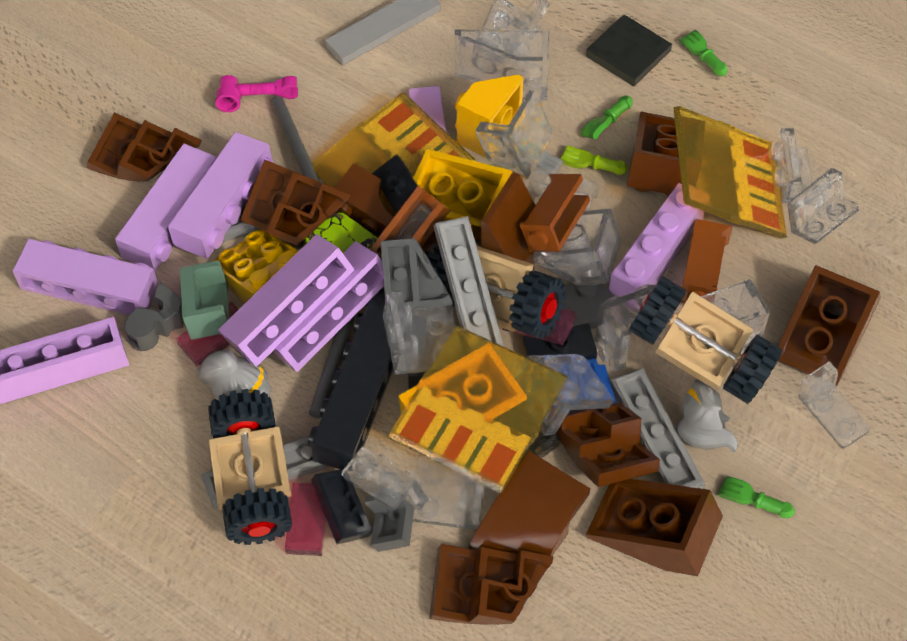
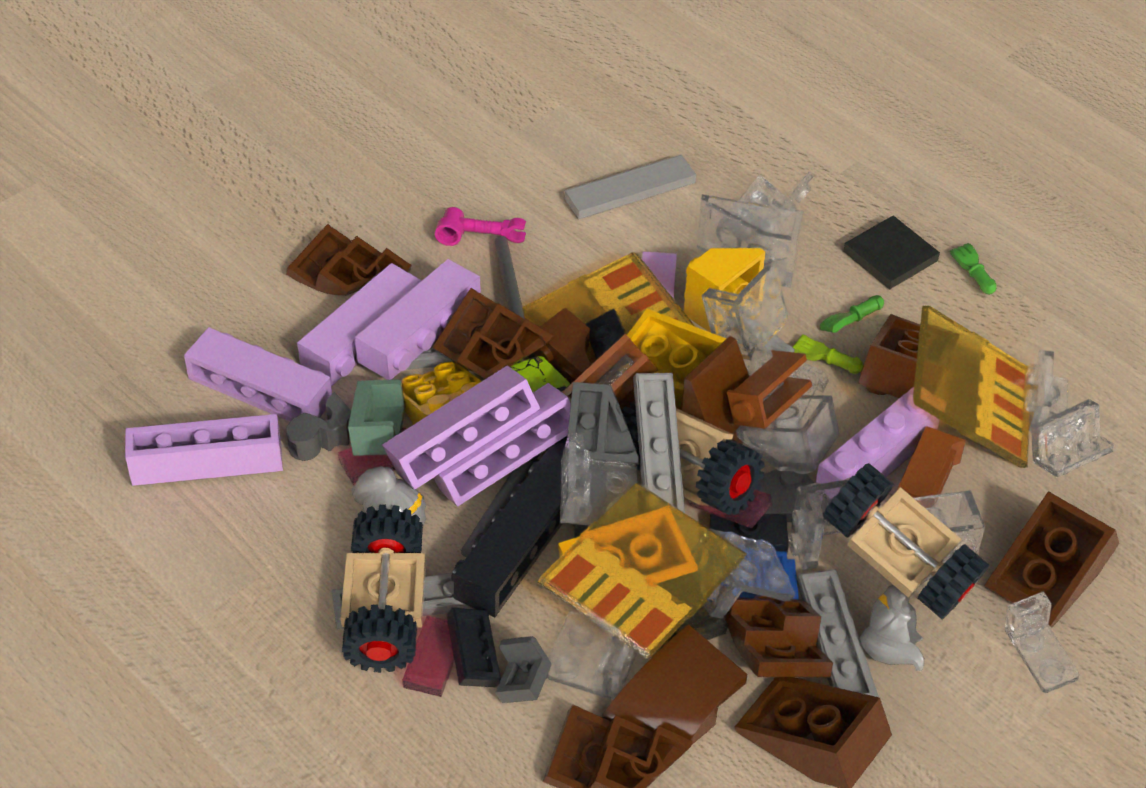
camera: 10 degrees right, 10 degrees down
(384, 480) = (525, 626): clear bracket -> none
(743, 493) = (921, 718): bright green piece -> none

